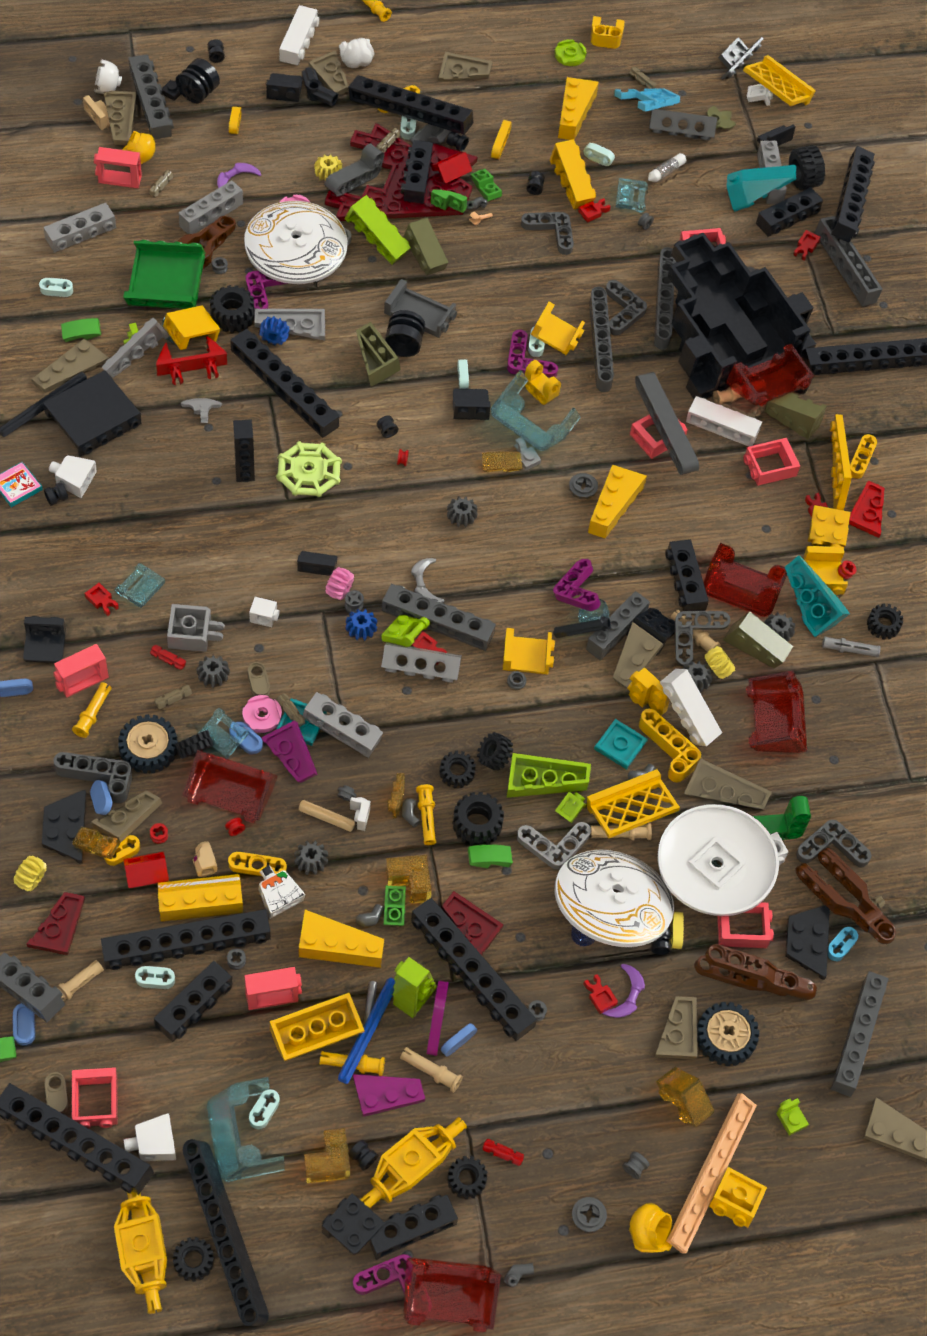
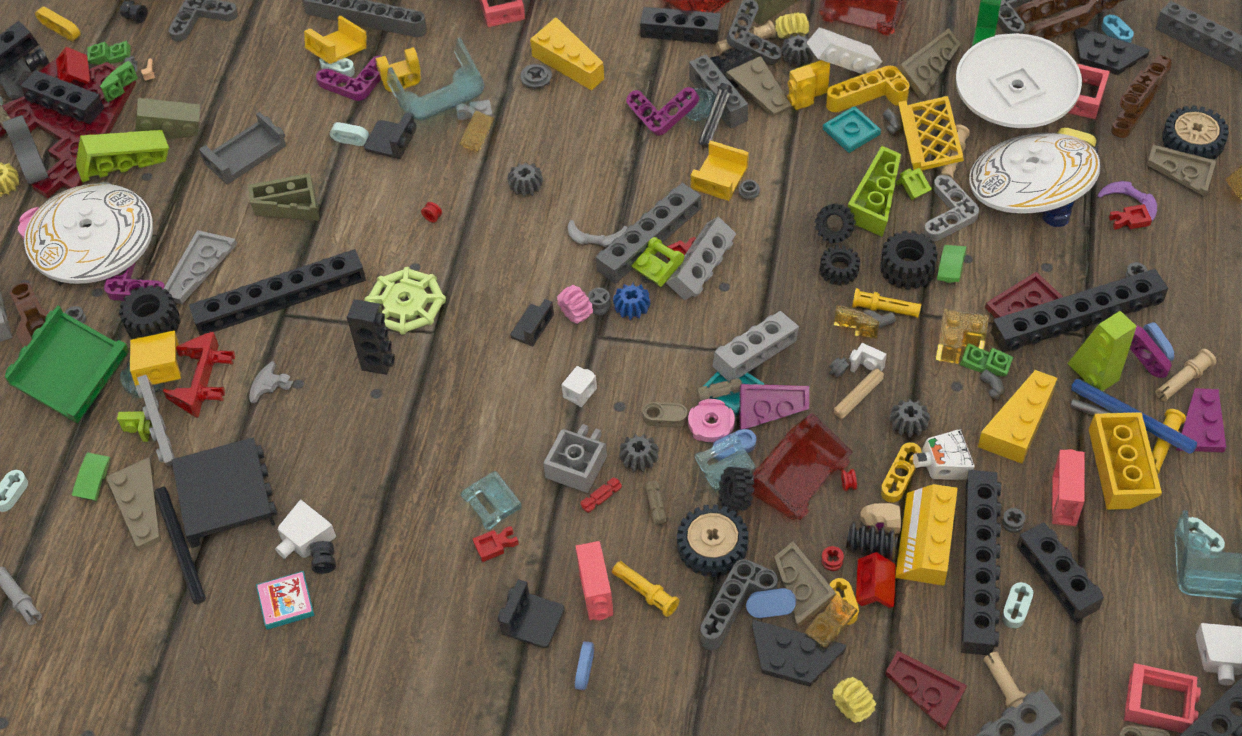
camera: 60 degrees left, 5 degrees down
(178, 856) = (871, 540): none -> black piece
(274, 330) = (204, 281): blue gear -> none
(387, 426) = (385, 215): black wheel -> none
(405, 333) = (273, 161): black wheel -> none

